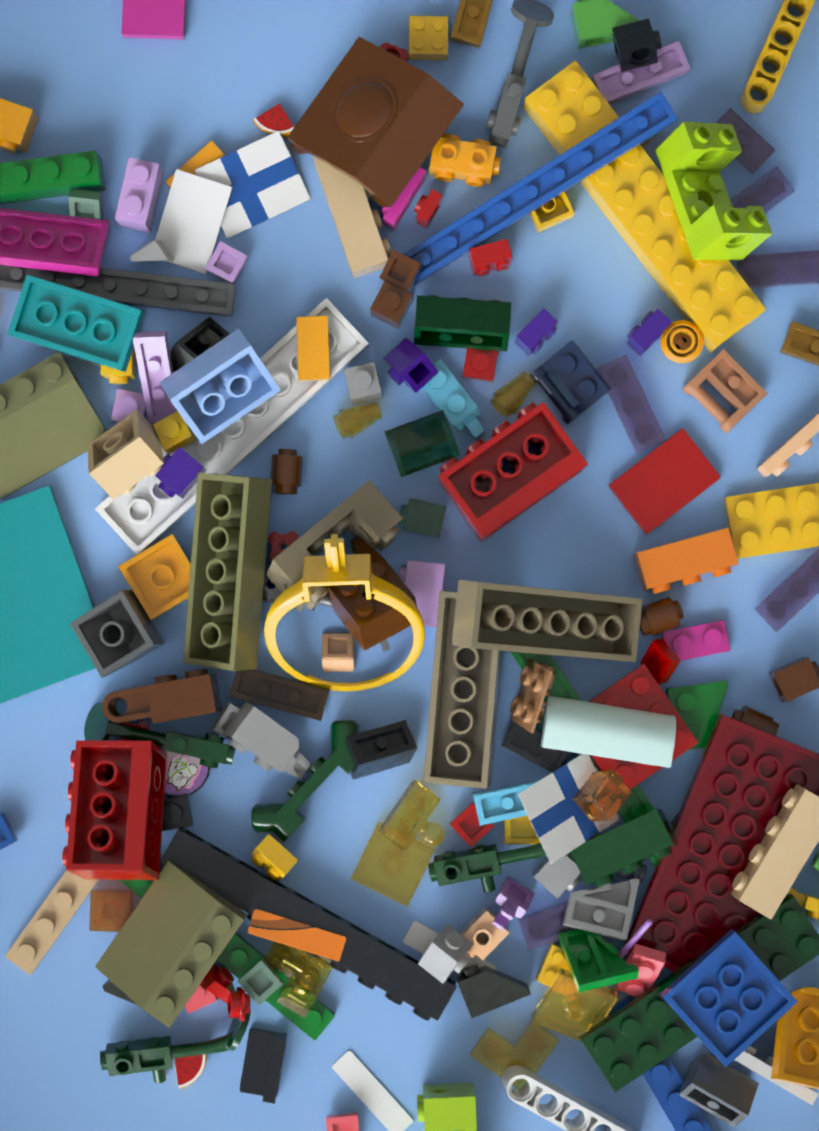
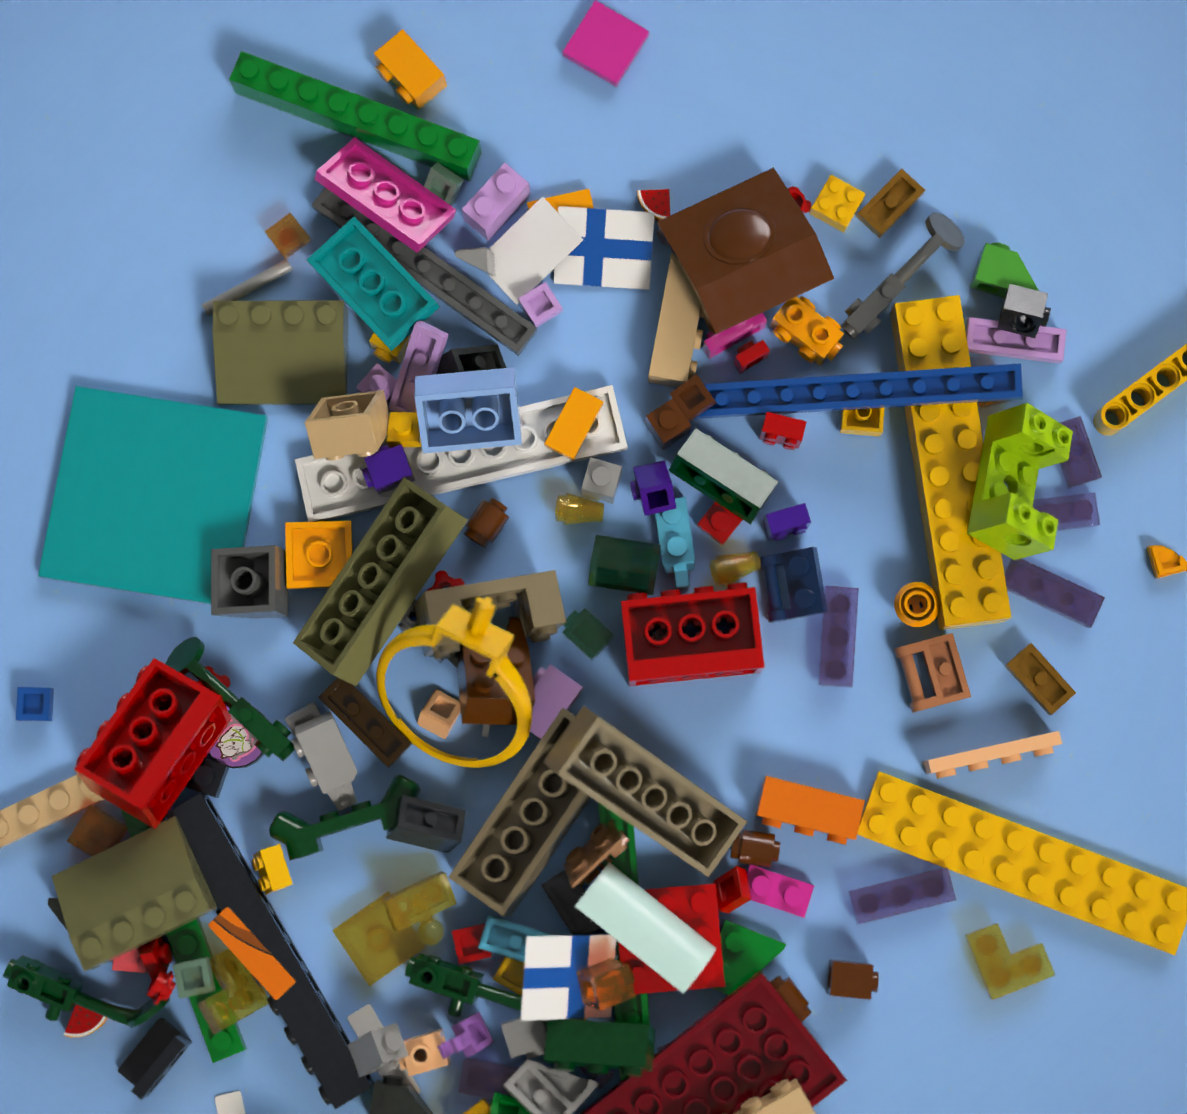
camera: 30 degrees right, 5 degrees down
(167, 698) = (260, 667): reddish brown brick -> none
(651, 329) = (890, 579): dark purple piece -> none
(664, 481) = (829, 725): red tile -> none

